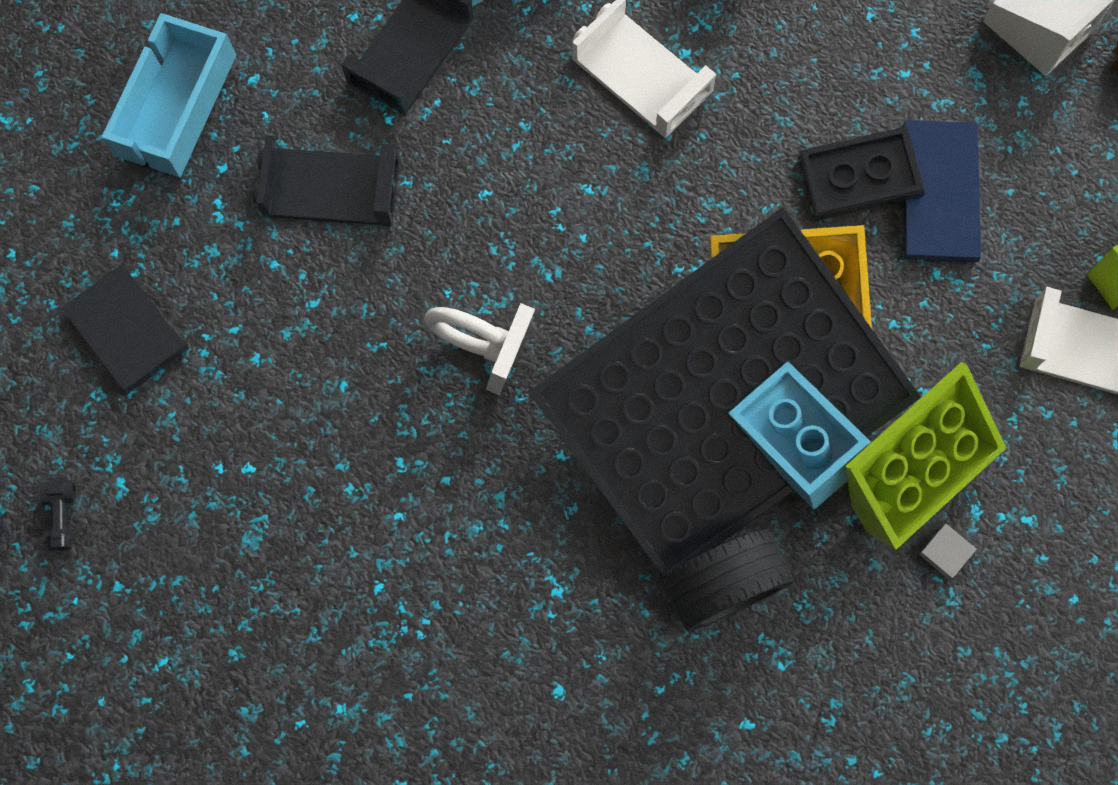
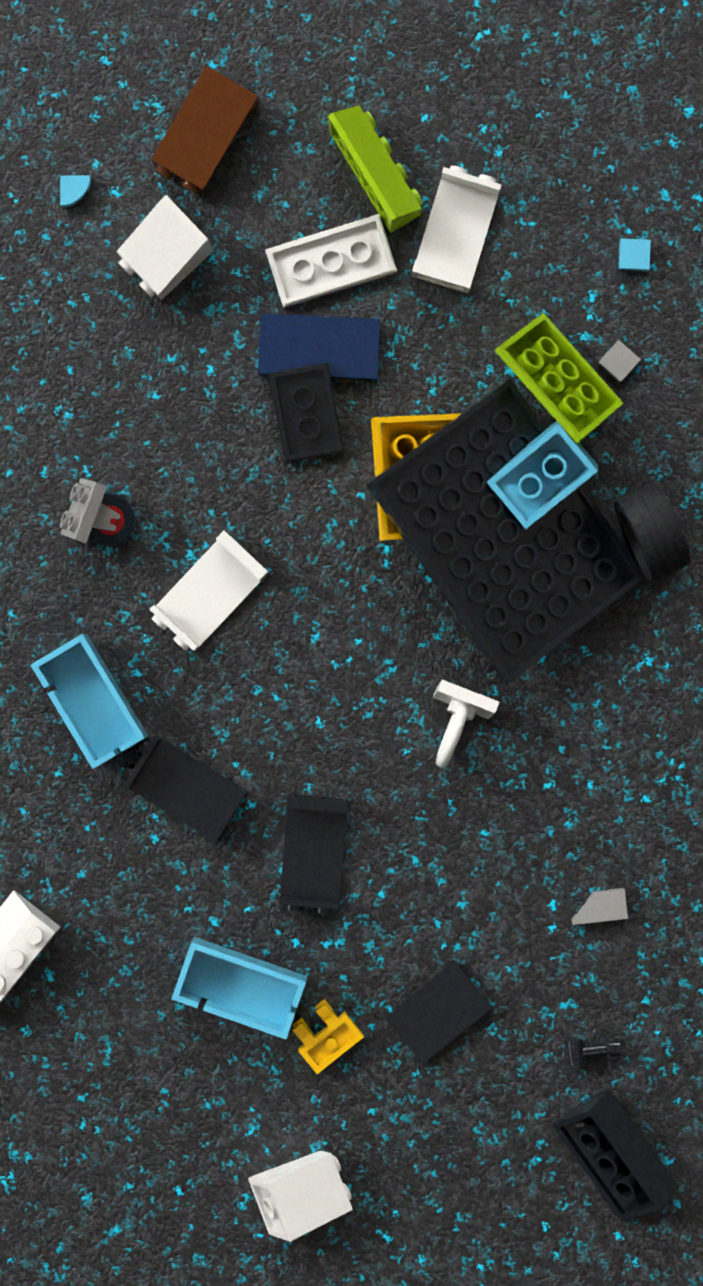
camera: 90 degrees left, 15 degrees up
(98, 202) = (331, 1041): none -> yellow plate
(240, 530) = (603, 906): none -> light grey tile
(1046, 204) = (331, 261): none -> white tile
(1088, 572) = (634, 254): none -> medium azure tile

